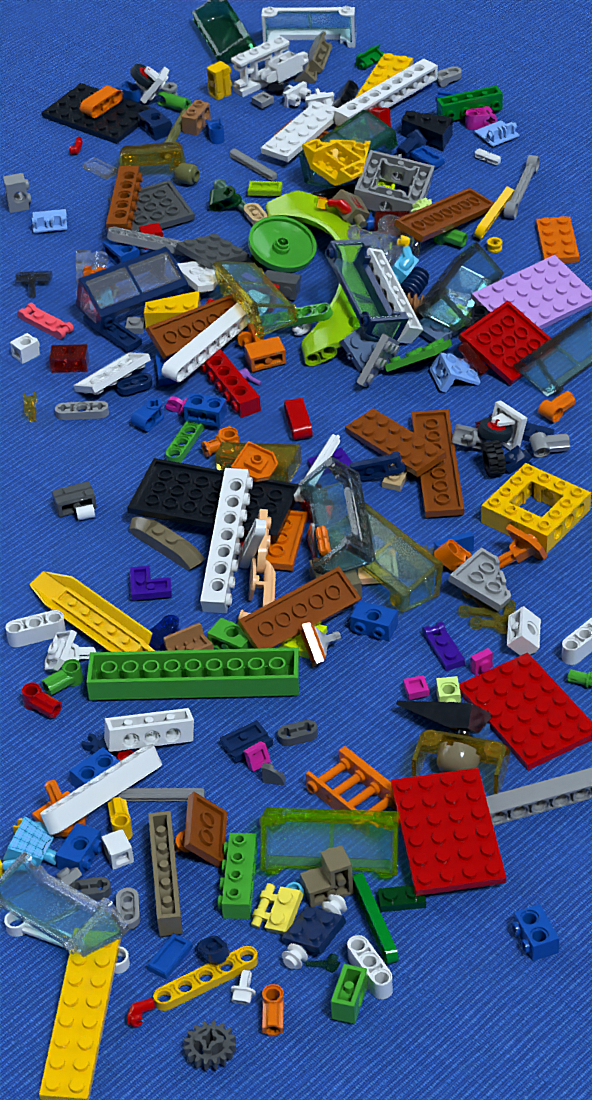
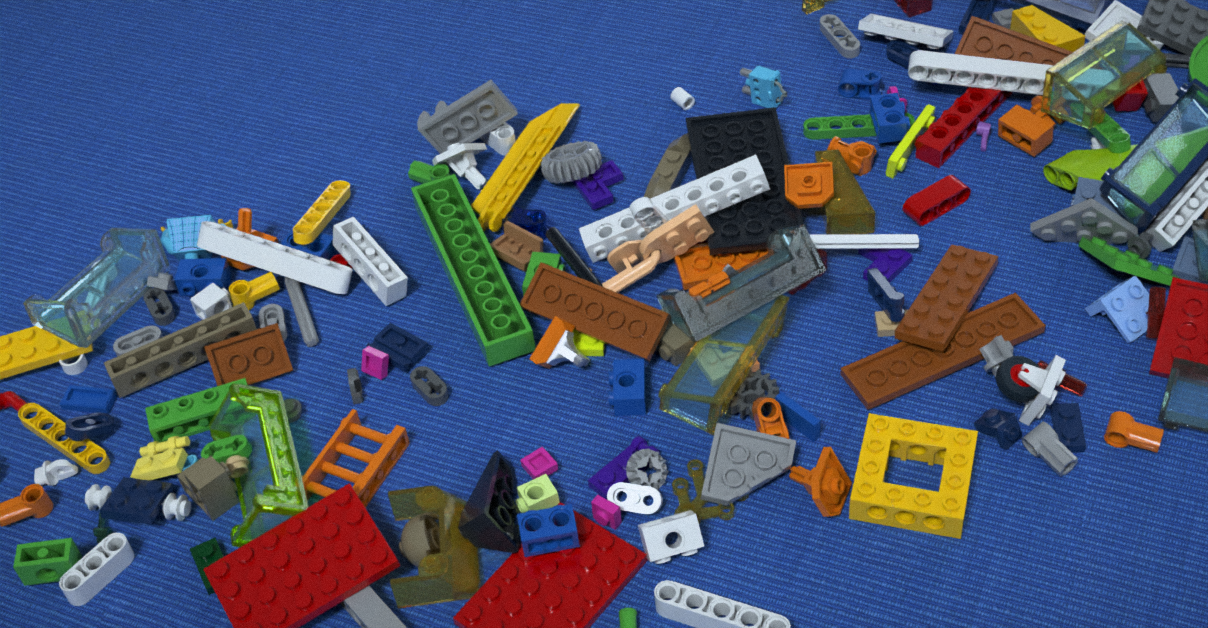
camera: 70 degrees right, 5 degrees up
(34, 631) = (467, 117): none -> light grey hinge
(38, 700) = (393, 172): red piece -> none
(64, 750) = (321, 212): none -> yellow beam
(73, 496) = (695, 81): dark grey brick -> none
(117, 460) = (763, 86): none -> medium azure piece
(121, 585) = (571, 162): none -> light grey gear
(178, 811) = (273, 314): none -> light grey plate
(226, 612) = (570, 256): none -> black axle
(234, 413) = (898, 159): none -> neon yellow plate
(292, 862) = (227, 447): none -> bright green beam
(315, 857) = (237, 465): none -> tan plate
(374, 919) = (157, 554): green beam -> none
(409, 343) = (1140, 244): none -> dark grey plate
(457, 631) = (639, 460): none -> light grey gear
(476, 645) = (635, 498): none -> white plate
(489, 687) = (549, 534): none -> blue brick
(493, 458) = (973, 397): black tyre -> none

